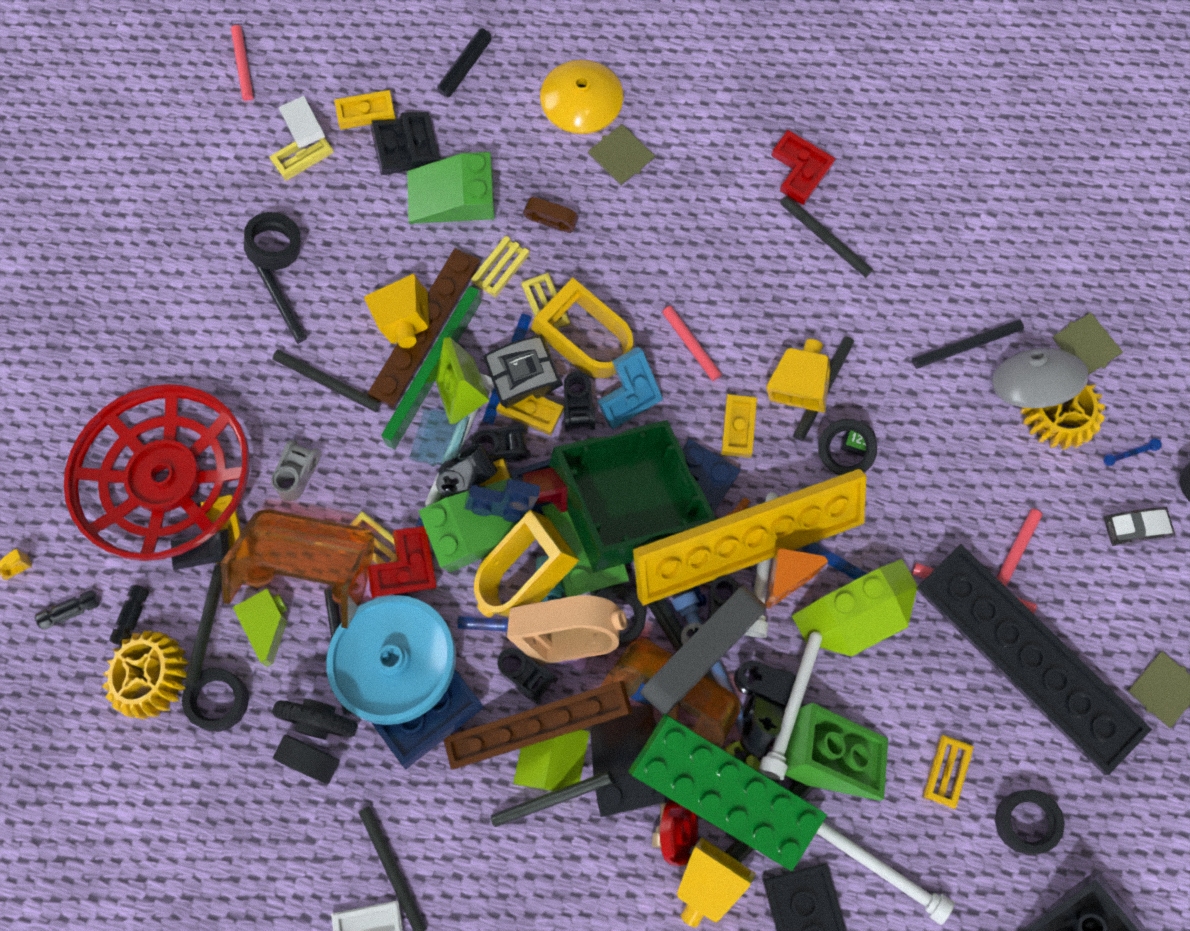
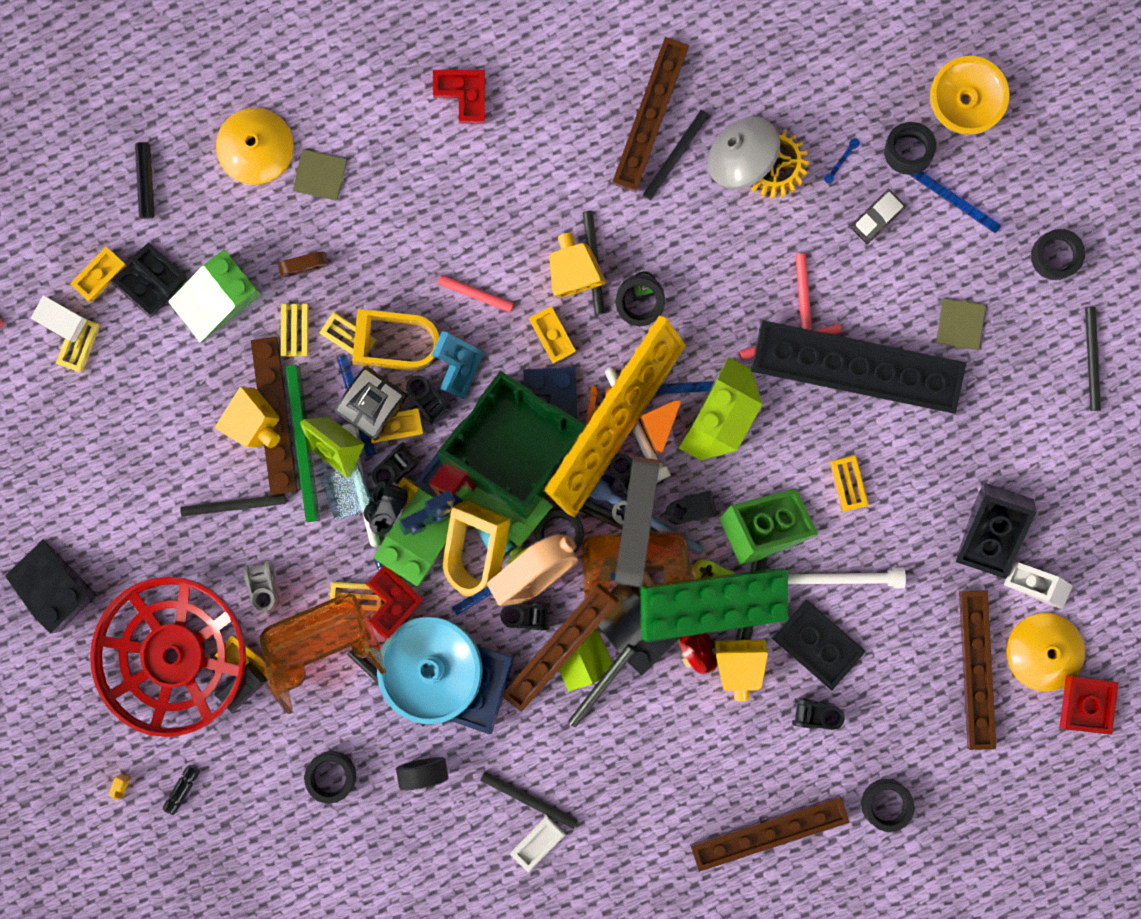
camera: 35 degrees left, 15 degrees up
(104, 341) = (49, 587): none -> black slope
(129, 614) = (226, 763): black axle -> none
(145, 674) = (264, 802): yellow gear -> none
(204, 629) = (286, 735): pearl dark grey bar -> none
(263, 623) = (323, 706): lime slope -> none
(272, 222) = (104, 412): black tyre -> none
(282, 304) = (144, 465): black bar -> none
(315, 718) = (409, 745): black wheel -> none
(760, 724) = (706, 541): black piece -> none
(774, 763) = (732, 562): white piece -> none
(826, 236) = (518, 138): pearl dark grey bar -> none
(966, 293) = (650, 114): none -> reddish brown plate
(1054, 815) = (938, 469): black tyre -> none
(1088, 342) = (761, 95): olive piece -> none

